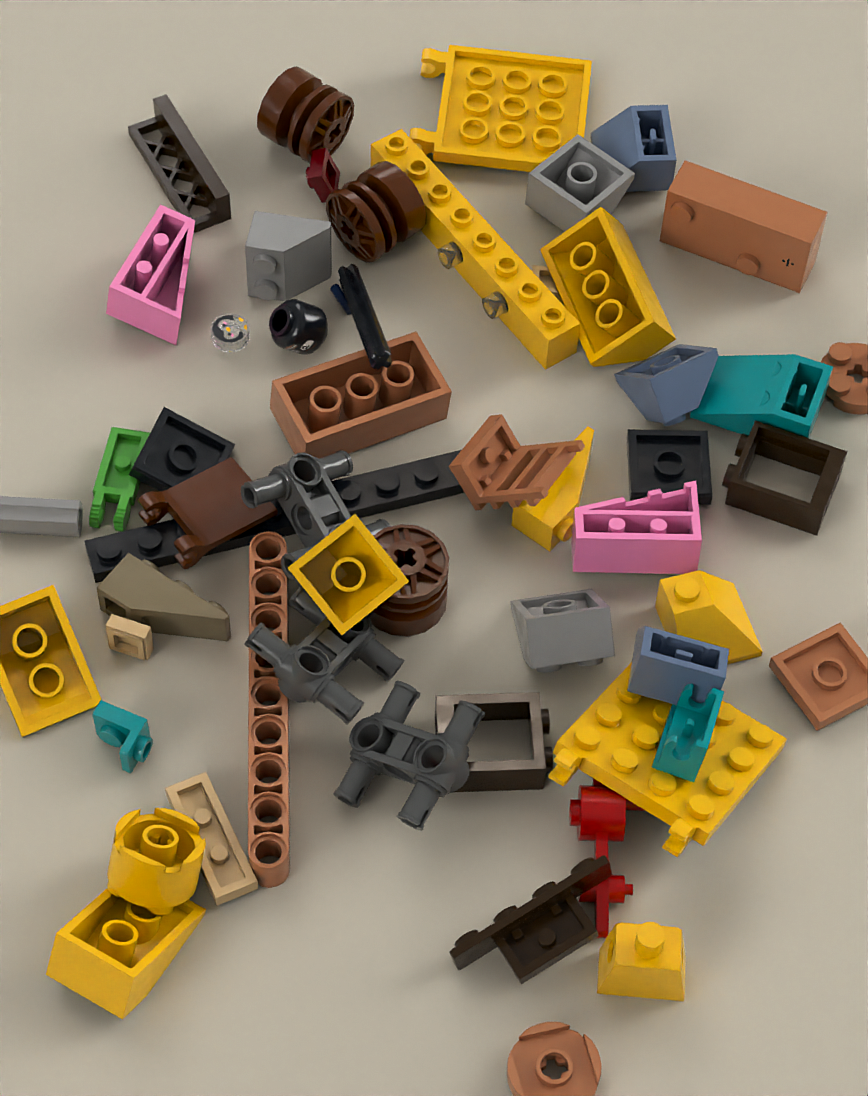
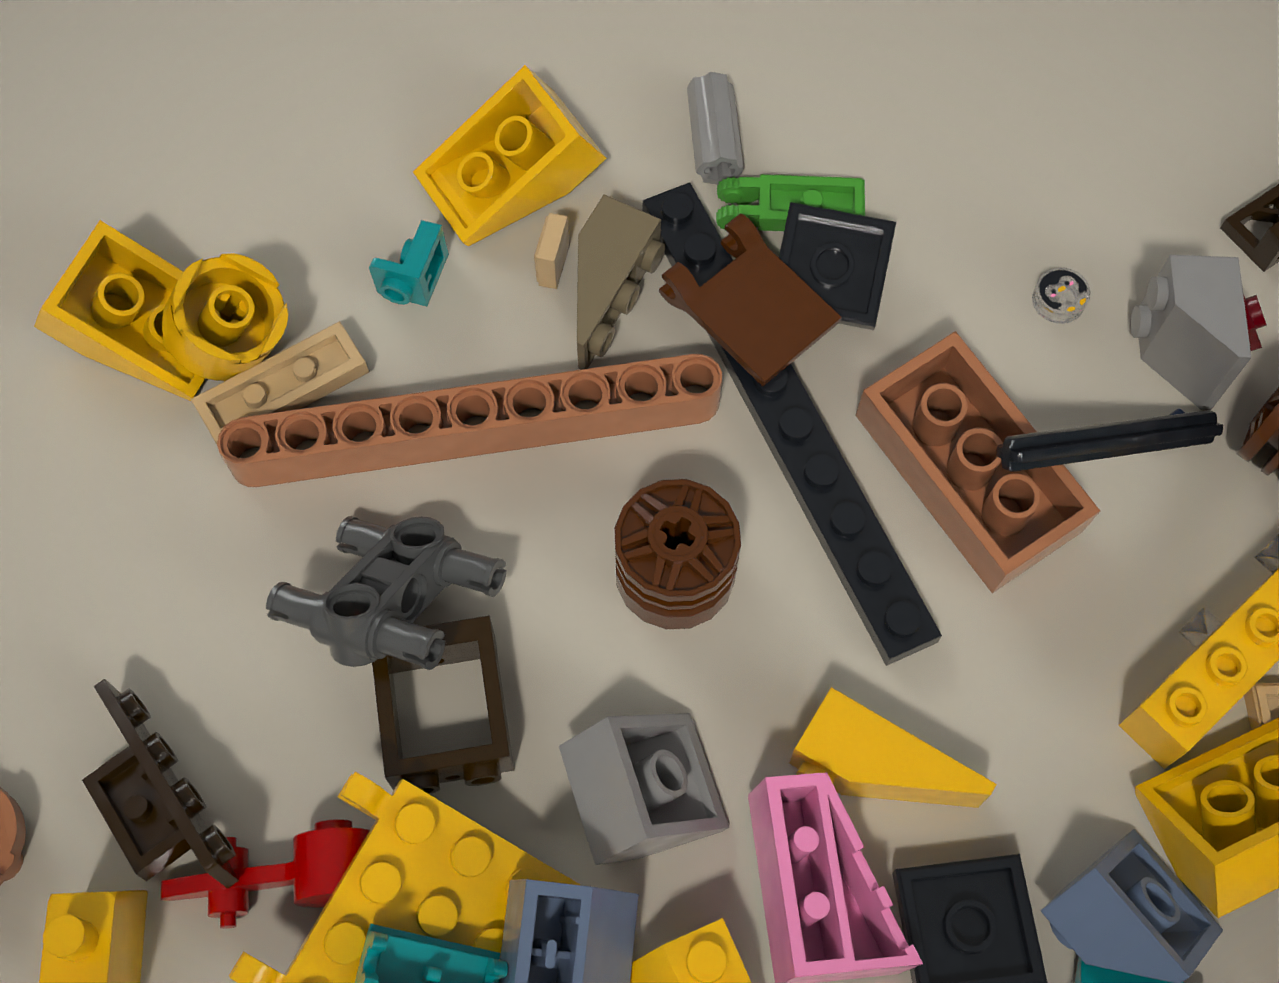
camera: 85 degrees right, 10 degrees up
(154, 276) = (1121, 184): bright pink wedge -> none
(298, 326) = (1082, 368): black head -> none
(307, 498) = (760, 425): dark grey piece -> none
(309, 668) = (538, 466): dark grey piece -> none
(348, 574) = (618, 452): yellow slope -> none
(499, 470) = (892, 673): nougat plate -> none

